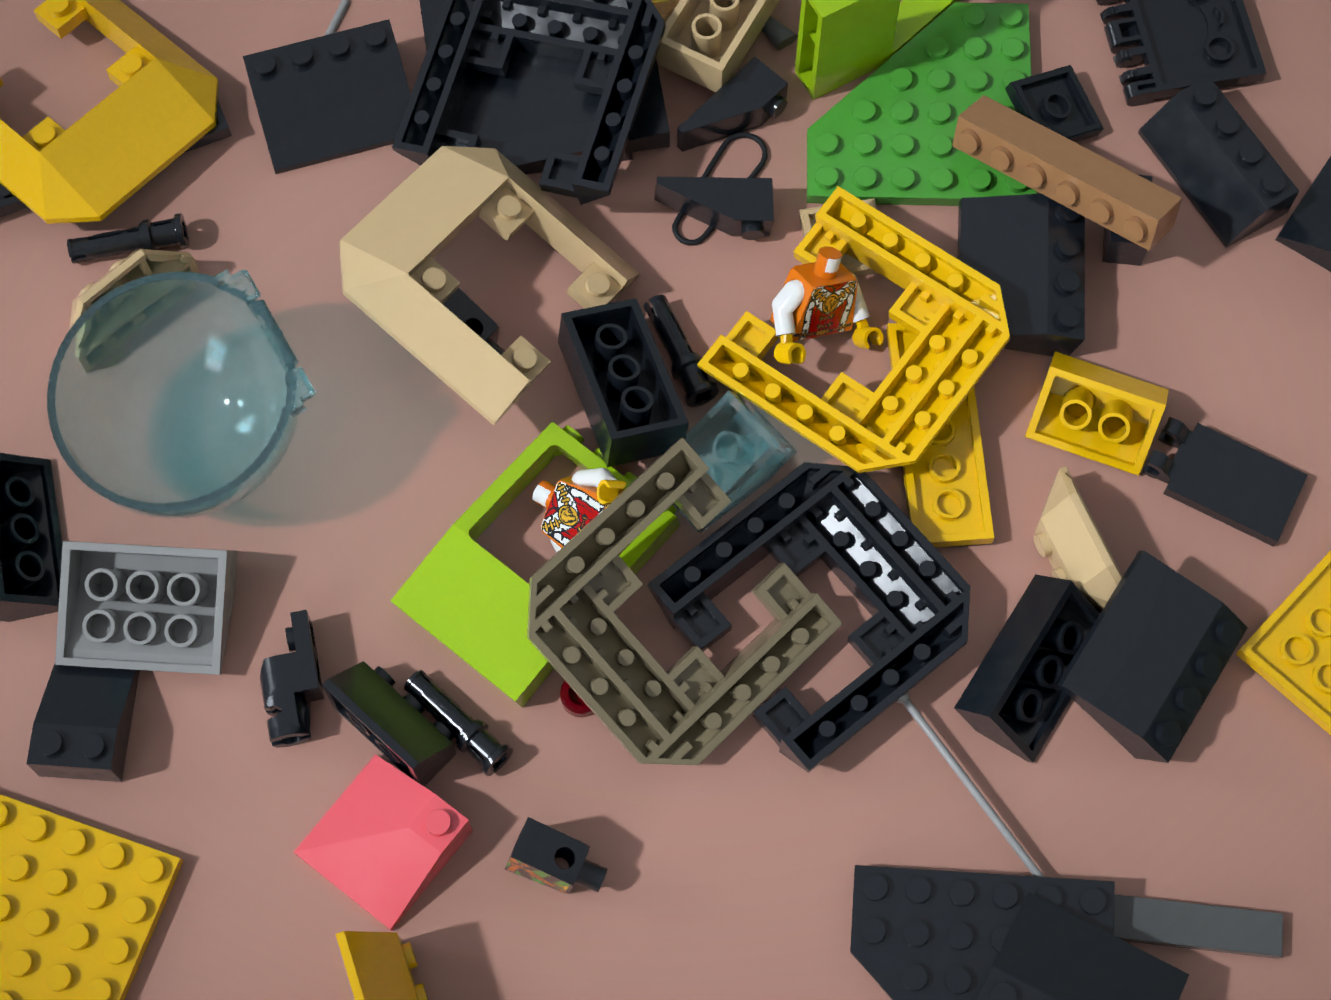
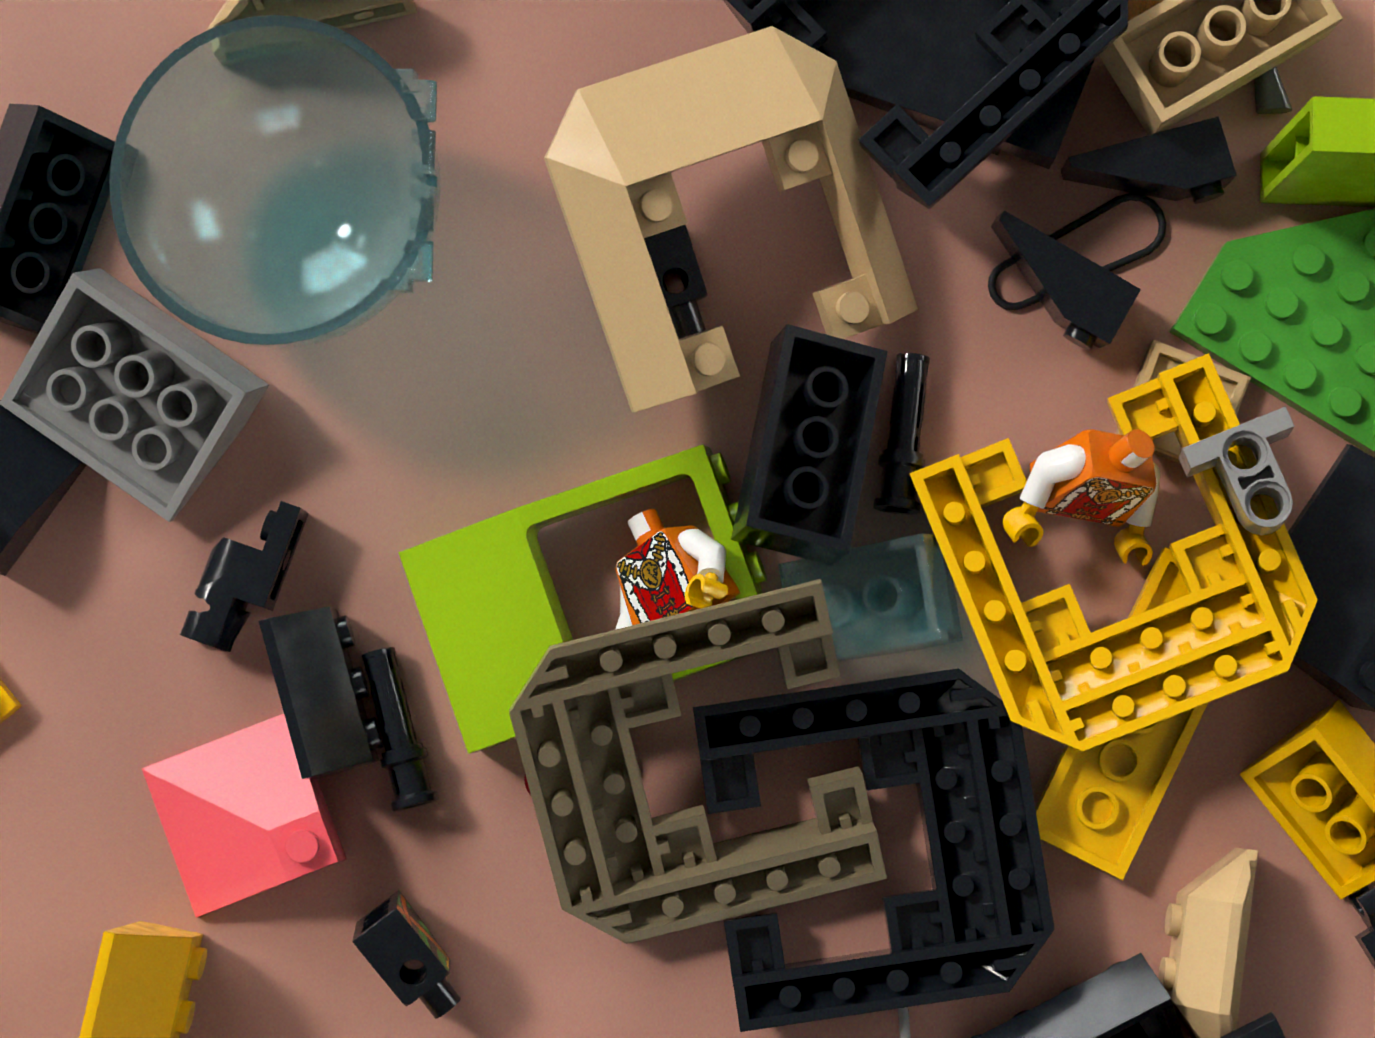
camera: 30 degrees right, 15 degrees up
(910, 240) = (1244, 484): none -> light grey tile

